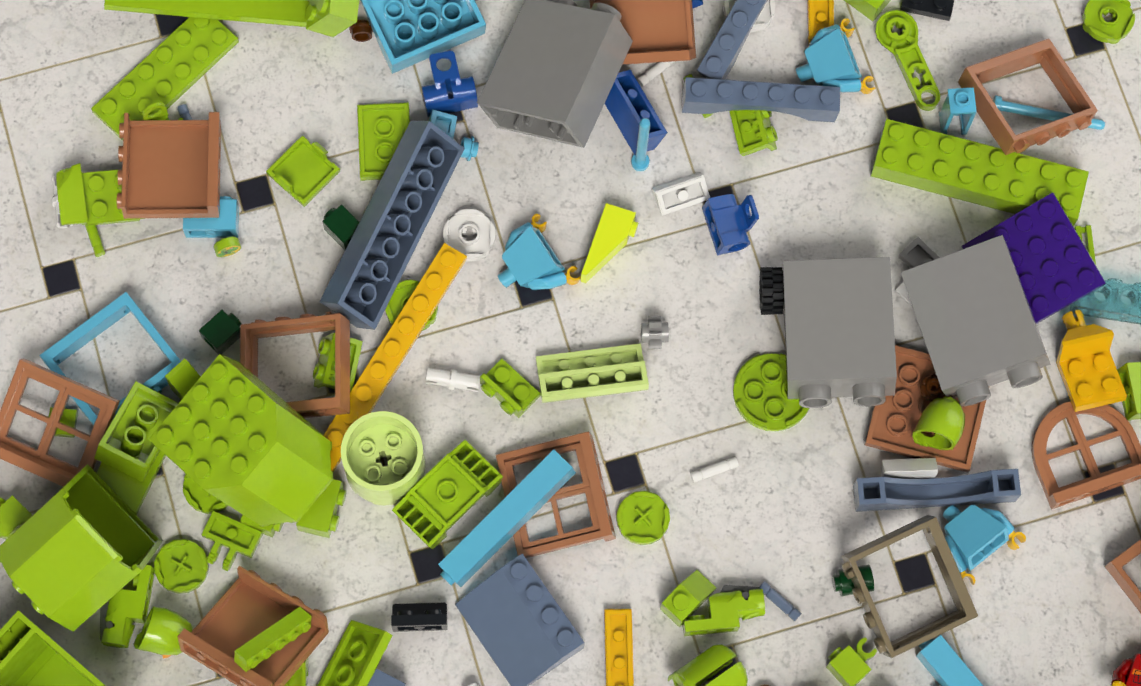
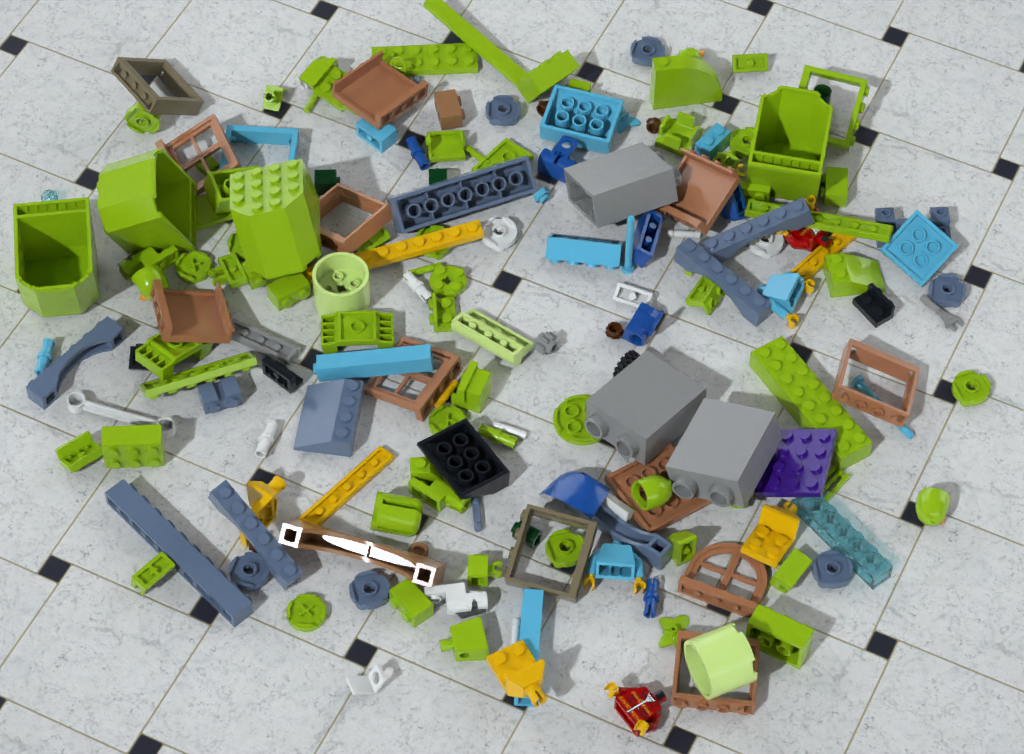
camera: 45 degrees right, 20 degrees down
(47, 268) = (273, 97): none -> lime bracket
(227, 246) = (370, 149): lime tile -> none
(263, 122) = (448, 109): none -> medium nougat brick
(272, 639) = (196, 314): lime piece -> none
(282, 206) = (418, 153): none -> blue pin
(320, 86) = (499, 118): none -> sand blue plate
(347, 153) = (475, 154): none -> lime wheel
(358, 594) = (263, 342): none -> light grey plate
(435, 348) = (425, 269): none -> lime wheel
(444, 121) = (540, 175): medium azure plate -> none
(471, 357) = (452, 273): none -> lime plate
(533, 260) = (518, 265): medium azure torso -> none
(580, 179) = (584, 250): none -> medium azure slope
(609, 485) = (447, 393): none -> yellow wheel
(610, 237) = (569, 286): neon yellow slope -> none
(635, 458) = (473, 388): none -> lime plate
(703, 247) = (614, 330): none -> reddish brown plate
(712, 489) = (498, 436): none -> lime pin
(718, 556) = (465, 461): none -> black slope
(861, 491) = (578, 491): none -> blue piece
(906, 578) = (554, 545): none -> lime plate
(907, 54) = (831, 323): lime beam -> none
(958, 103) = (830, 350): medium azure window -> none
(1017, 455) = (683, 546): none -> lime slope
(1040, 542) = (651, 598): none -> blue pin
(1090, 559) = (671, 629): none -> lime piece

